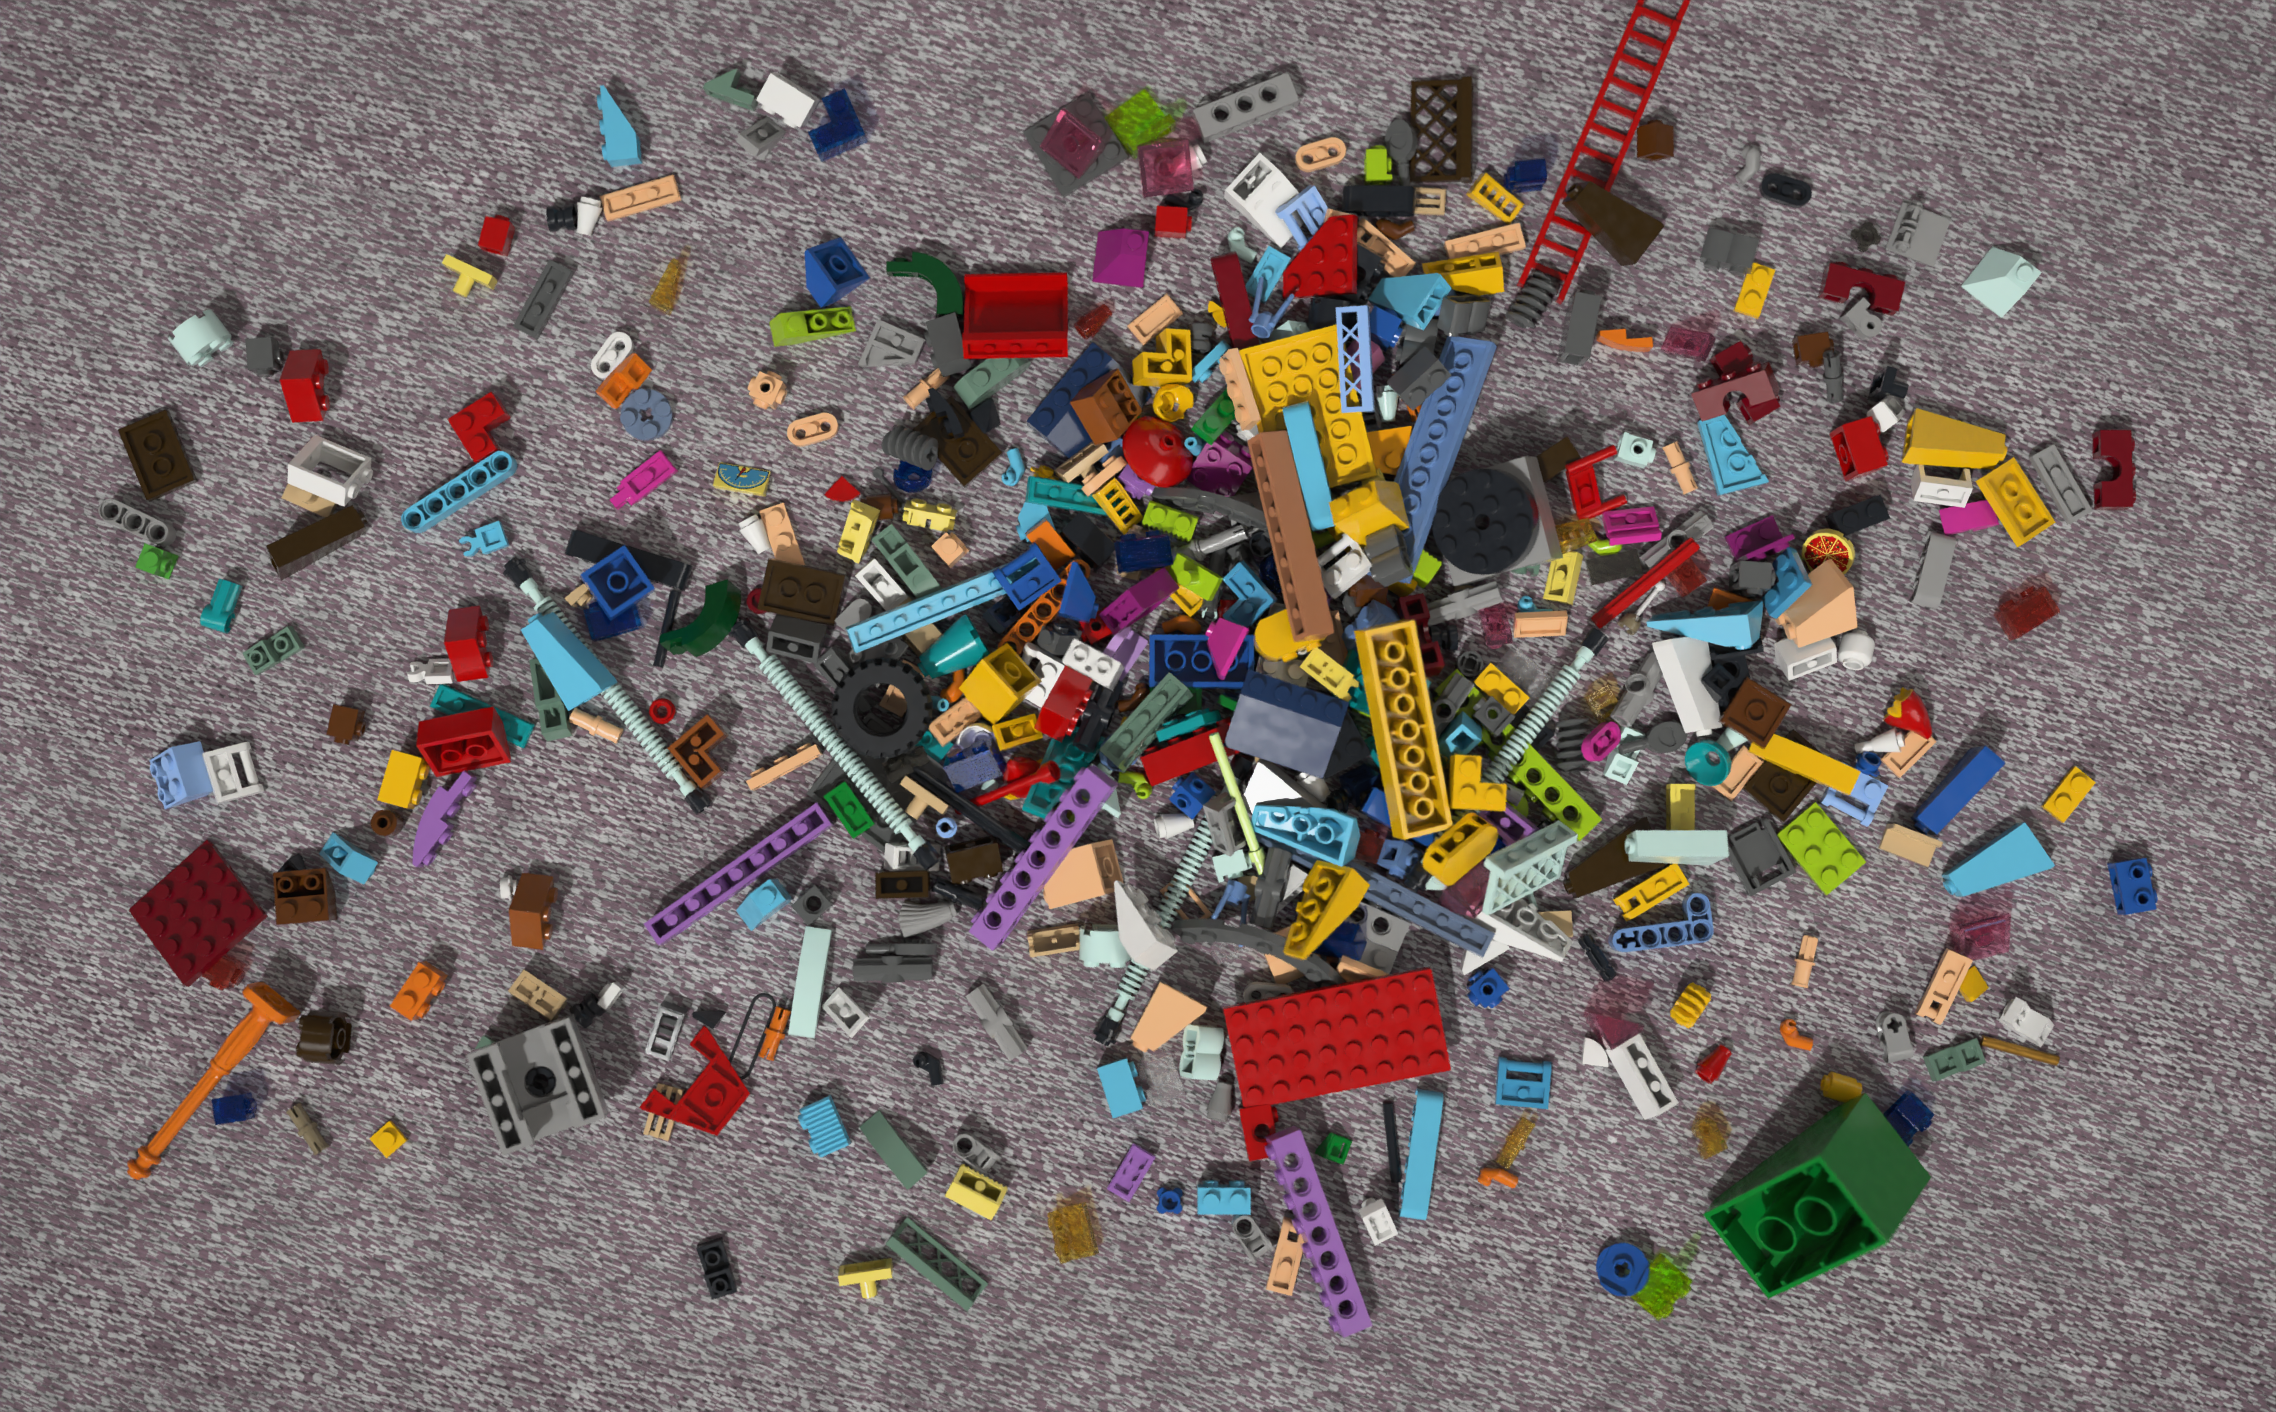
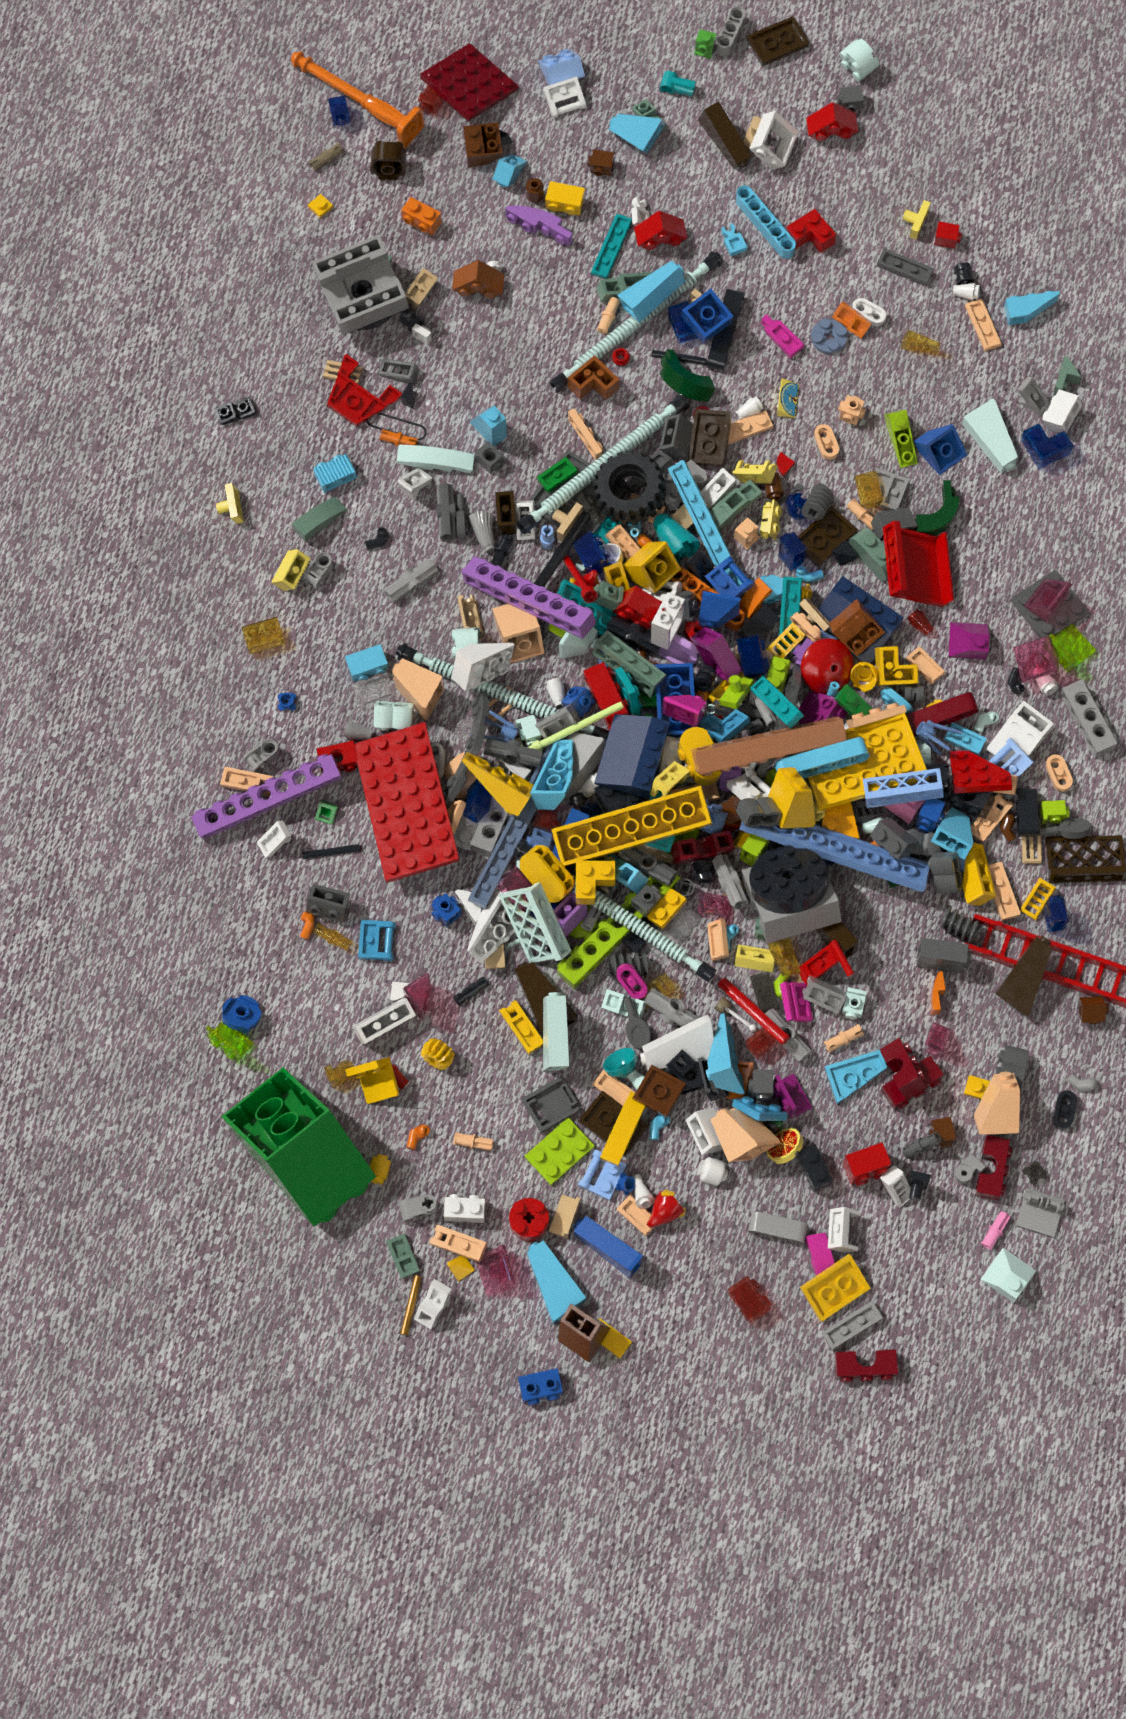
camera: 90 degrees right, 15 degrees down
(297, 669) = (637, 130): none -> medium azure slope
(463, 741) = (592, 233): red slope -> none
(739, 874) = (516, 415): medium lavender brick -> none
(815, 200) = (990, 433): none -> light aqua slope
(891, 376) = (868, 490): none -> clear yellow slope
(928, 1270) = (233, 547): sand green fence -> none
(937, 403) = (848, 519): black slope -> none
(973, 859) = (525, 557): dark brown brick -> none
(983, 488) = (792, 550): none -> clear blue brick
(1043, 744) = (609, 595): none -> sand green brick
(1131, 1172) = (306, 674): medium lavender plate -> none
(1138, 782) = (589, 662): lime arm -> none
(1169, 618) = (705, 678): none -> black wheel
(1172, 222) = (998, 671): red brick -> none
(1223, 521) = (776, 702): none -> teal tile
(1224, 1199) = (288, 735): medium azure brick -> none
(1422, 1154) = (321, 868): medium azure beam -> none
(1472, 1149) = (327, 902): none -> dark grey brick
(1624, 488) = (824, 994): none -> light grey hinge
(1660, 930) = (492, 1034): medium blue beam -> none
(1680, 806) = (585, 1046): light yellow hinge -> none
(1723, 1088) = (376, 1079): none -> yellow bracket
(1791, 272) = (999, 1106): none -> light nougat slope
(1793, 722) = (657, 1124): none -> medium azure arm
(1900, 976) = (464, 1209): none -> white brick
(1909, 1116) = (356, 1218): clear blue brick -> none
(1919, 906) = (539, 1223): none -> red brick
(1940, 292) = (995, 1230): none -> bright pink axle
(1950, 442) = (877, 1235): yellow slope -> none
(2067, 827) = (581, 1332): none -> reddish brown slope

